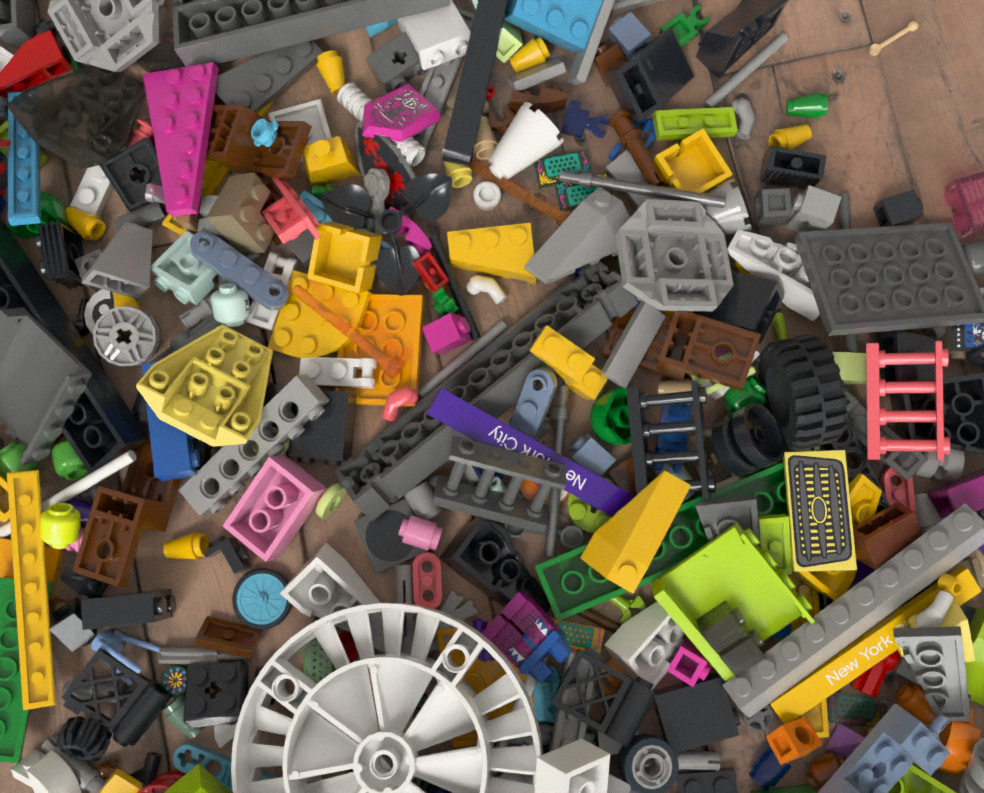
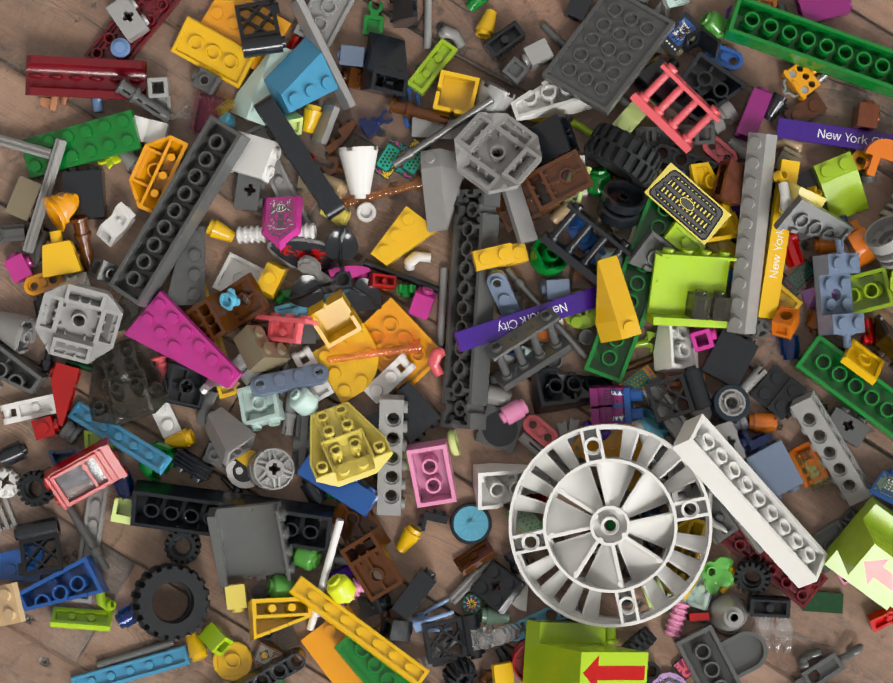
camera: 55 degrees left, 5 degrees up
(155, 740) = (489, 636): none -> clear legs

